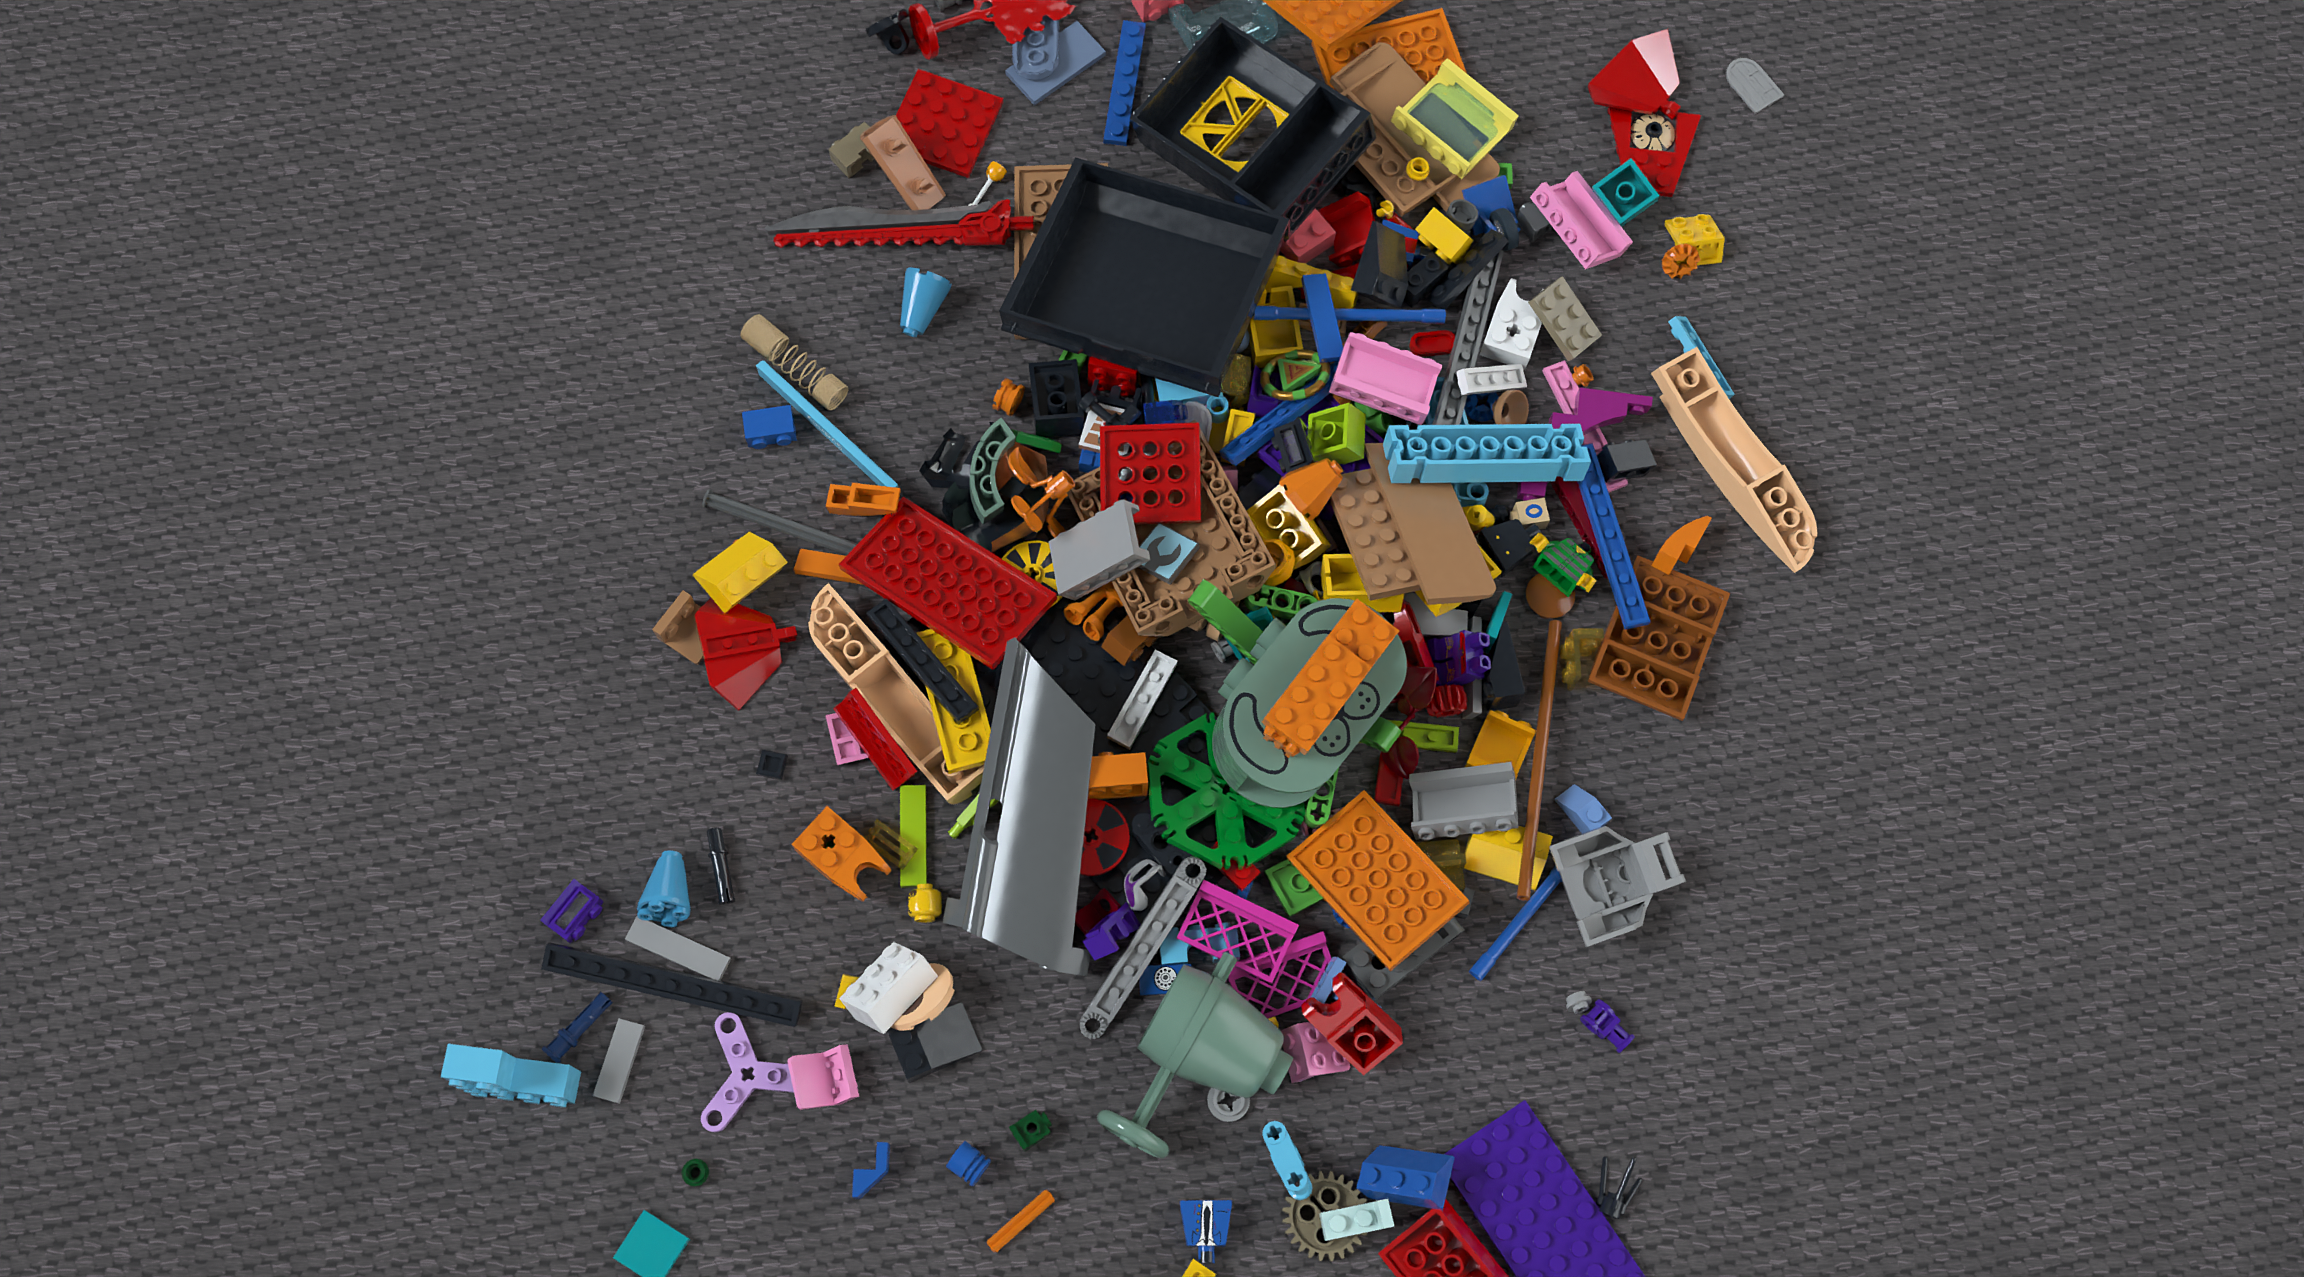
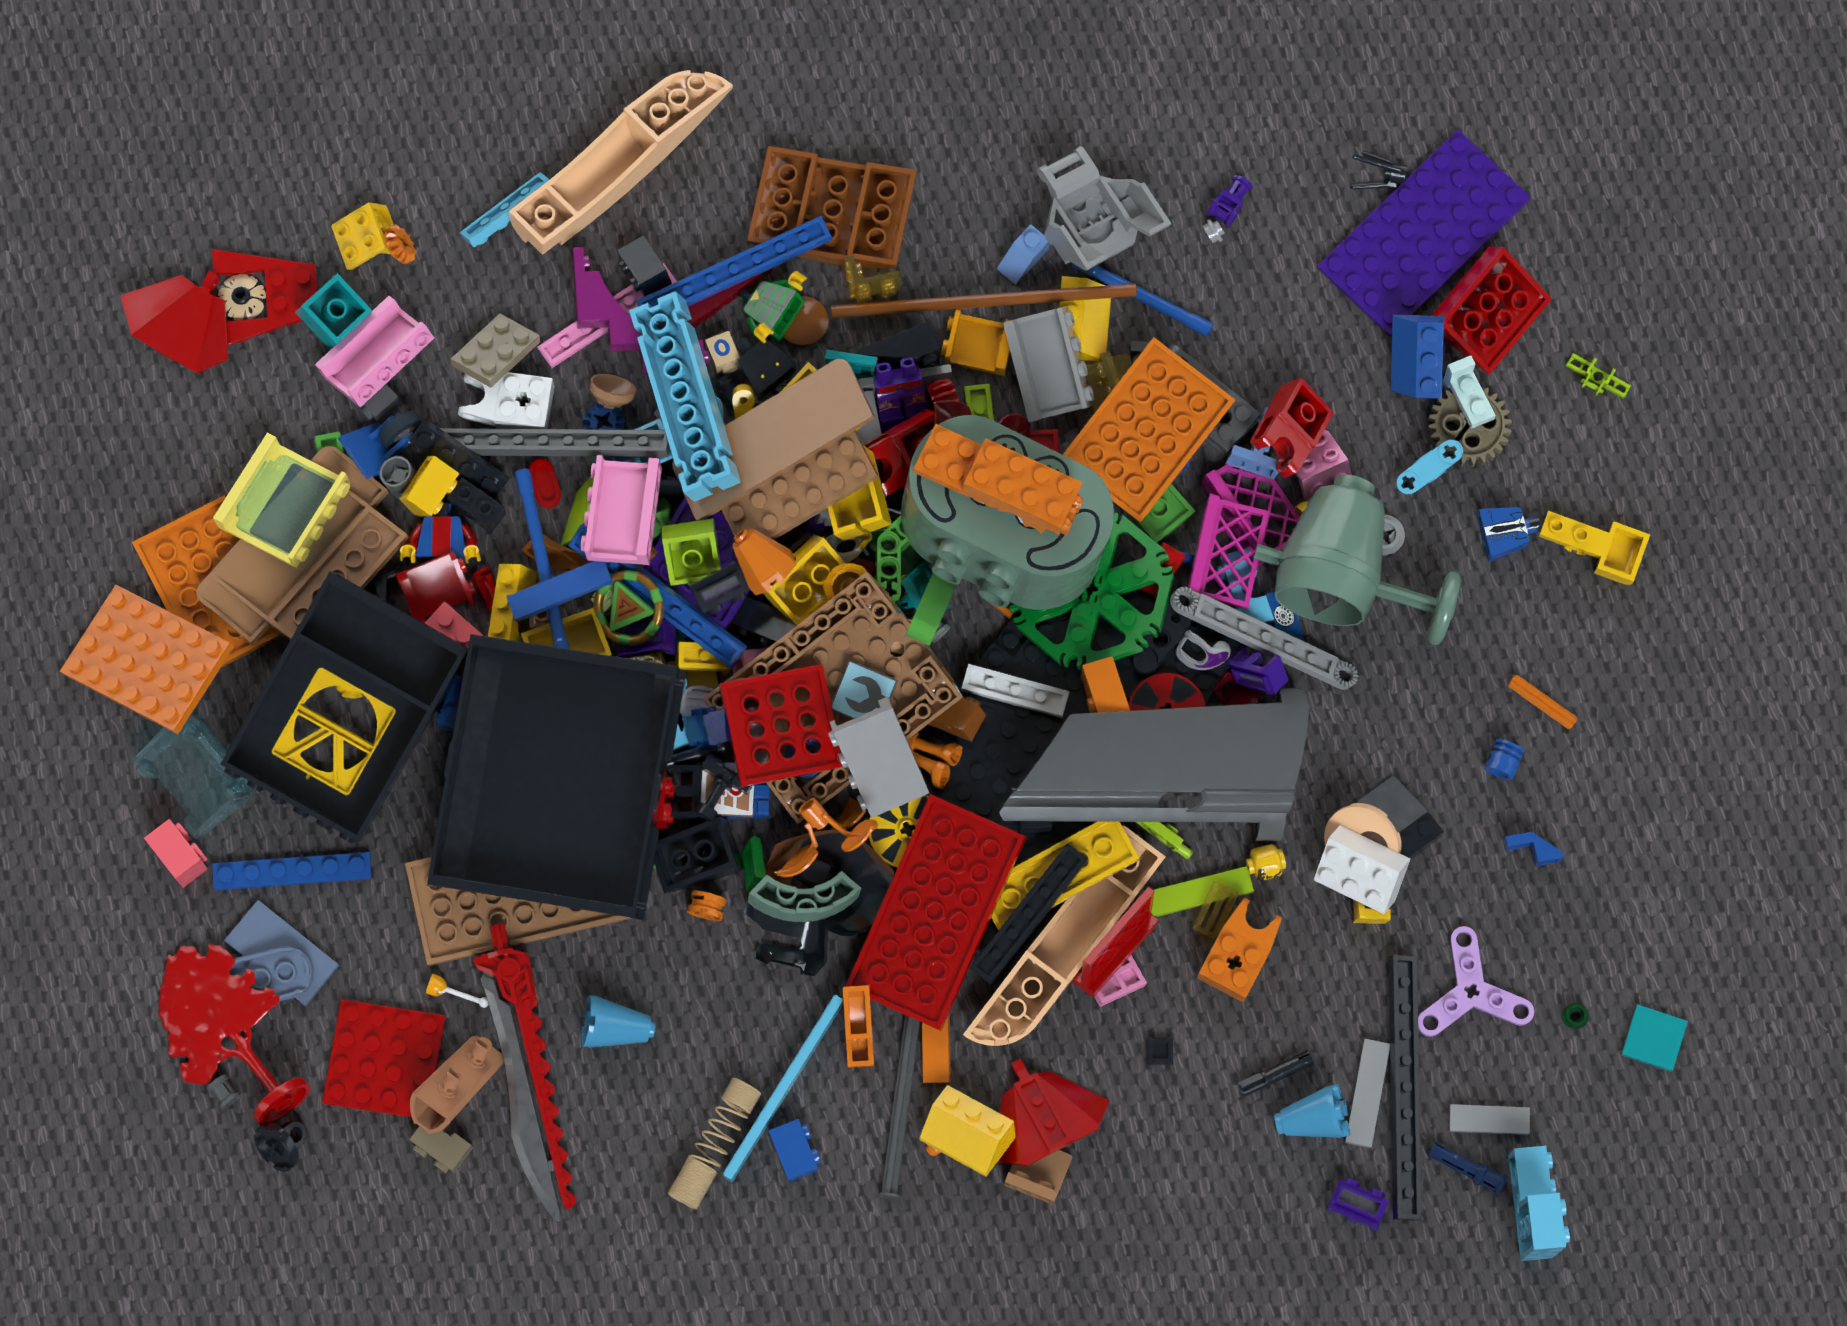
camera: 100 degrees left, 5 degrees up
(823, 1078) = (1459, 912): bright pink bracket -> none
(1026, 1139) = (1458, 719): dark green brick -> none
(1382, 267) = (486, 539): black slope -> none
(1420, 164) = (350, 521): yellow plate -> none
(1491, 379) = (587, 410): white plate -> none
(1582, 375) = (552, 325): orange plate -> none
(1680, 545) = (728, 198): orange slope -> none
(1752, 84) = (159, 202): light grey window -> none

